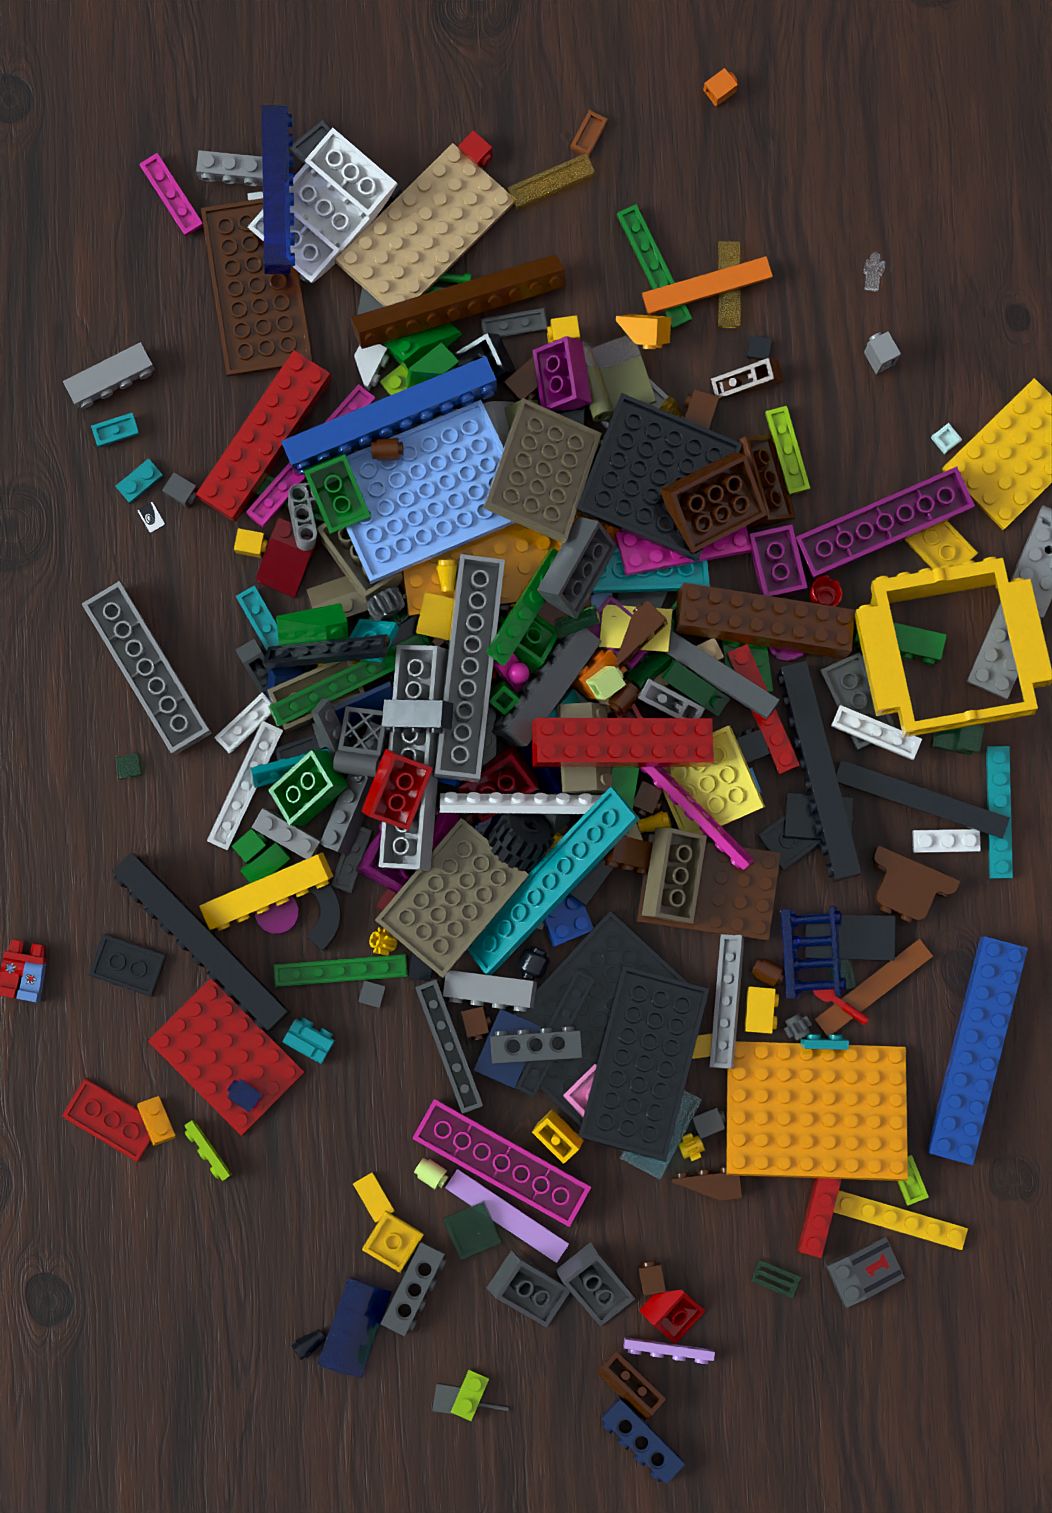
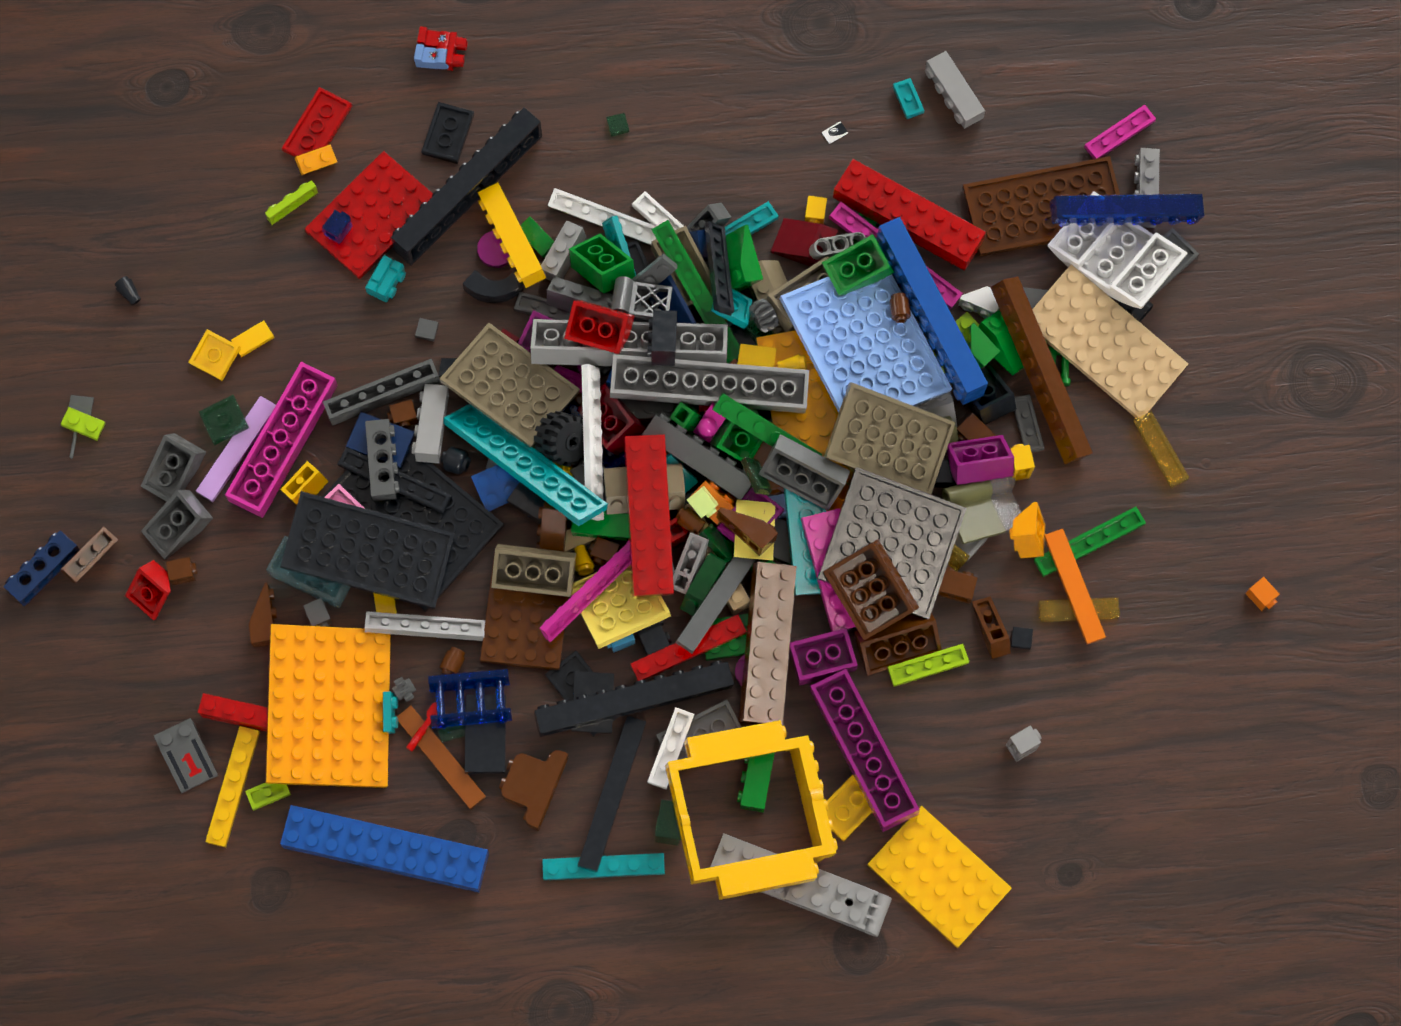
camera: 85 degrees right, 10 degrees down
(139, 481) = (865, 120): teal plate -> none
(146, 668) = (701, 132): light grey brick -> none
(180, 490) = (859, 150): dark grey brick -> none
(250, 845) = (551, 222): green brick -> none
(340, 970) = (446, 303): green tile -> none
(354, 1327) = (141, 326): clear blue slope -> none
(382, 942) = (469, 333): yellow gear -> none
(393, 1318) = (149, 357): dark grey brick -> none
(431, 1173) = (272, 383): yellowish green brick -> none
(476, 149) = (1183, 383): red brick -> none
(589, 133) = (1208, 481): dark orange tile -> none
(679, 1352) = (120, 580): lavender plate -> none
(691, 1147) = (296, 600): yellow gear -> none
(760, 1010) = (418, 656): yellow brick -> none
(787, 1293) = (187, 663): clear green tile -> none
(825, 591) = (798, 701): red hair -> none
(873, 270) = (1100, 737): clear piece -> none
(946, 438) = (949, 809): light aqua tile -> none
(946, 841) = (575, 818): white plate -> none

